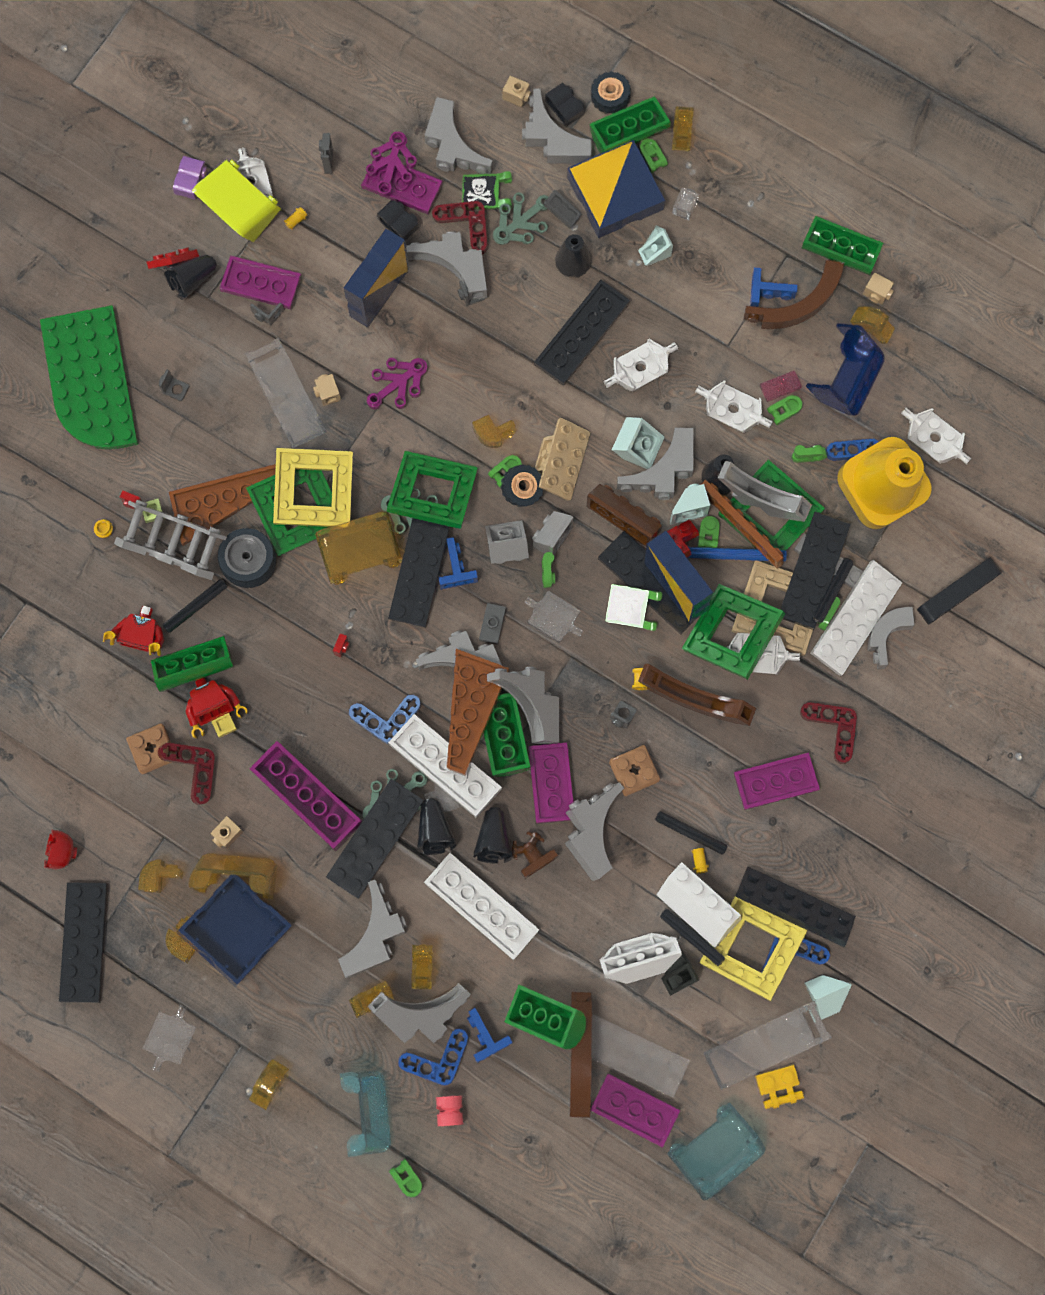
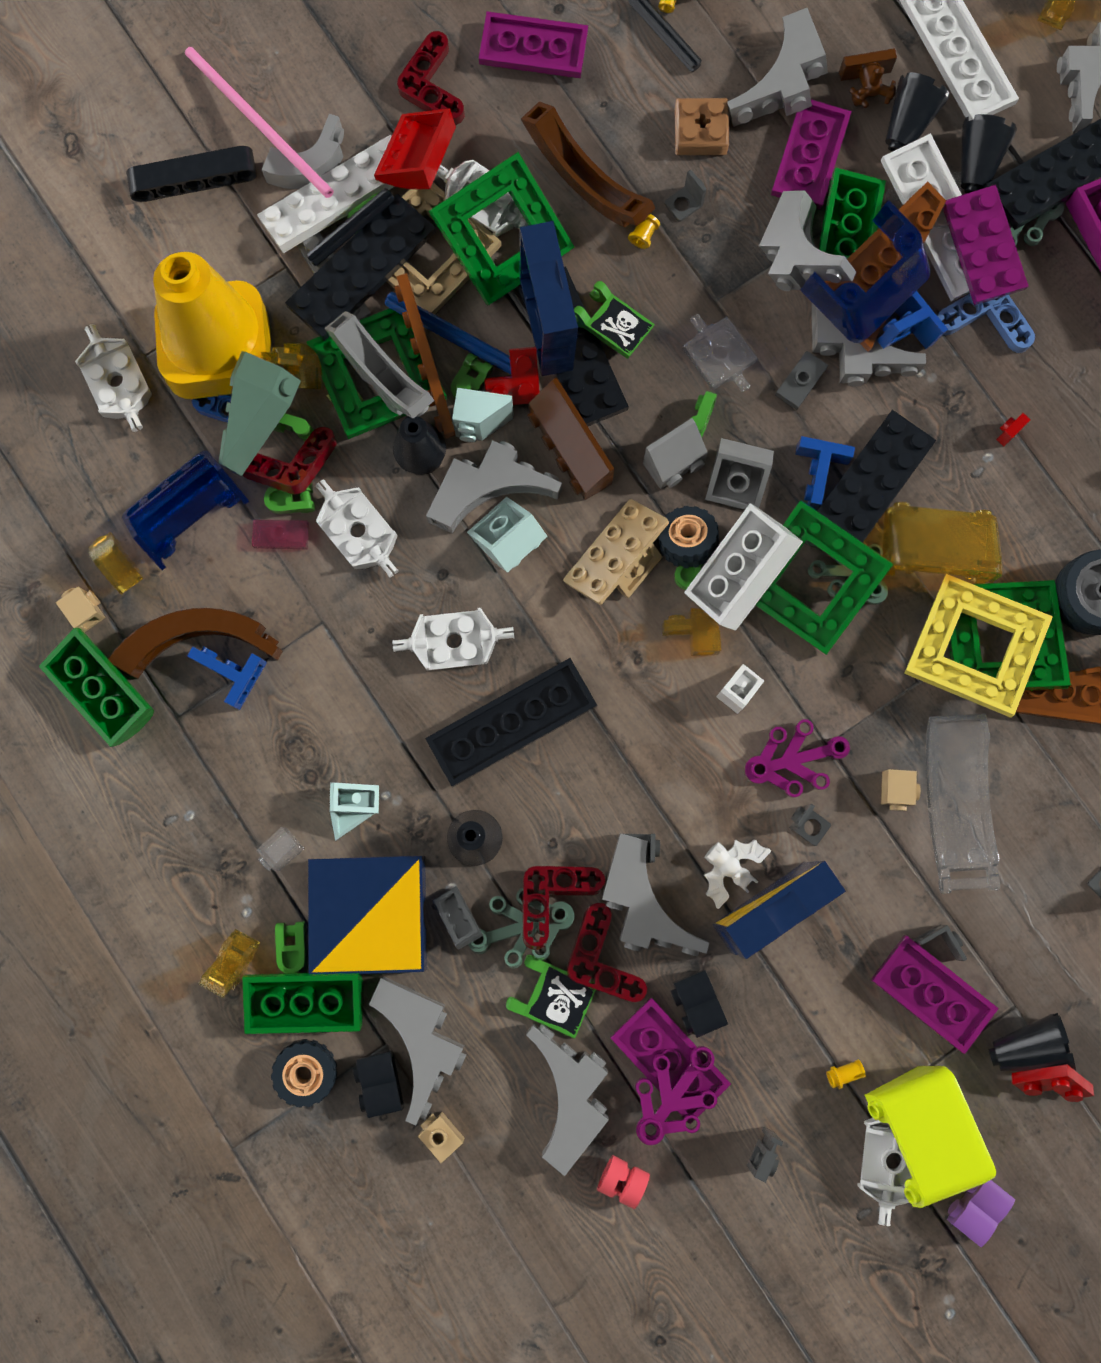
camera: 155 degrees left, 5 degrees up
(380, 348) = (801, 816): none -> dark grey bracket
(401, 109) = (633, 1185): none -> coral wheel
(408, 754) = (985, 245): none -> magenta plate
(414, 304) = (727, 864): none -> white animal
(432, 692) = (914, 318): none -> blue bracket
(449, 408) = (740, 689): none -> white slope
(452, 703) = (862, 313): none -> clear blue windscreen
(480, 473) = (742, 567): none -> white slope
(515, 248) = (550, 887): none -> dark red beam
(793, 421) = (290, 472): none -> dark red beam
(816, 661) = (416, 149): none -> red slope
(822, 485) = (299, 361): none -> clear yellow brick
(831, 448) = (257, 404): none -> sand green wedge
(932, 639) = (259, 122): none -> bright pink piece

